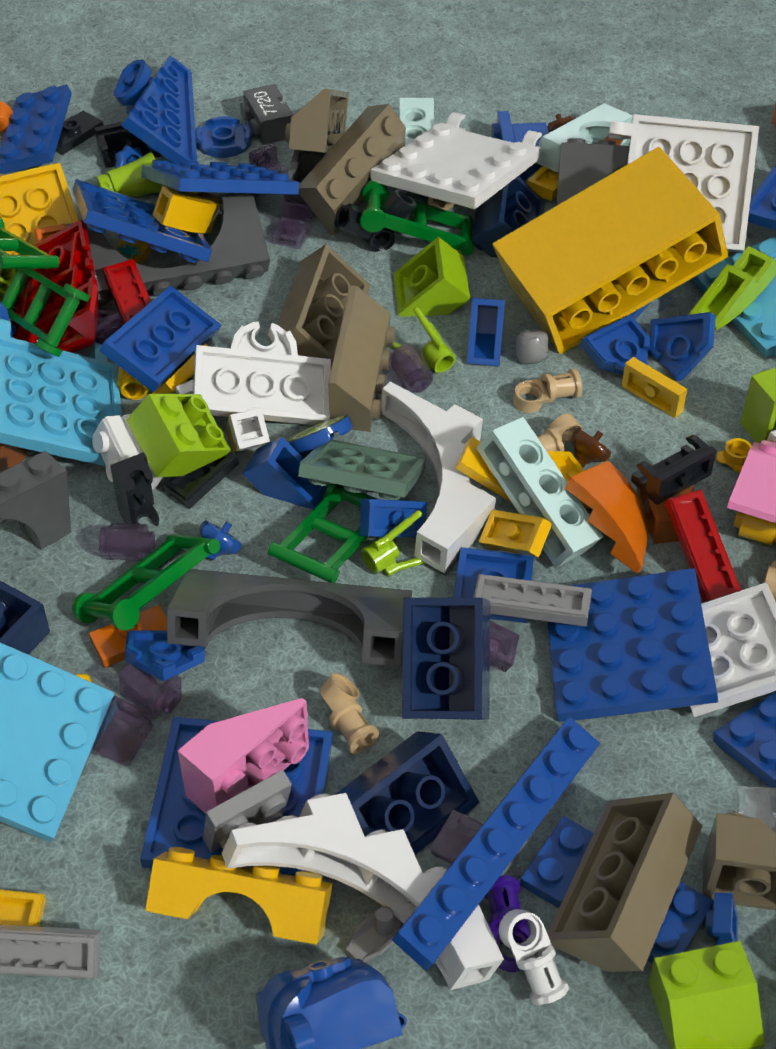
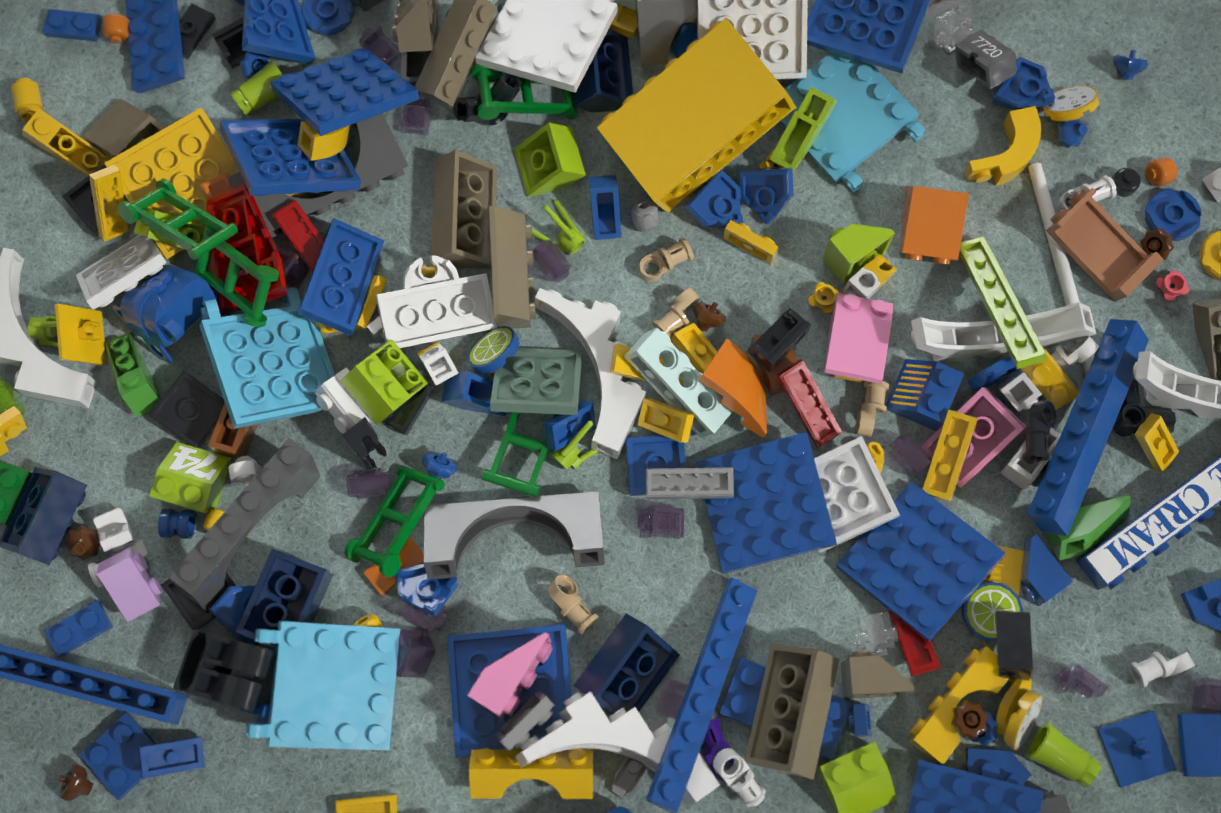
camera: 10 degrees left, 25 degrees up
(446, 658) = (637, 556): dark blue slope -> none

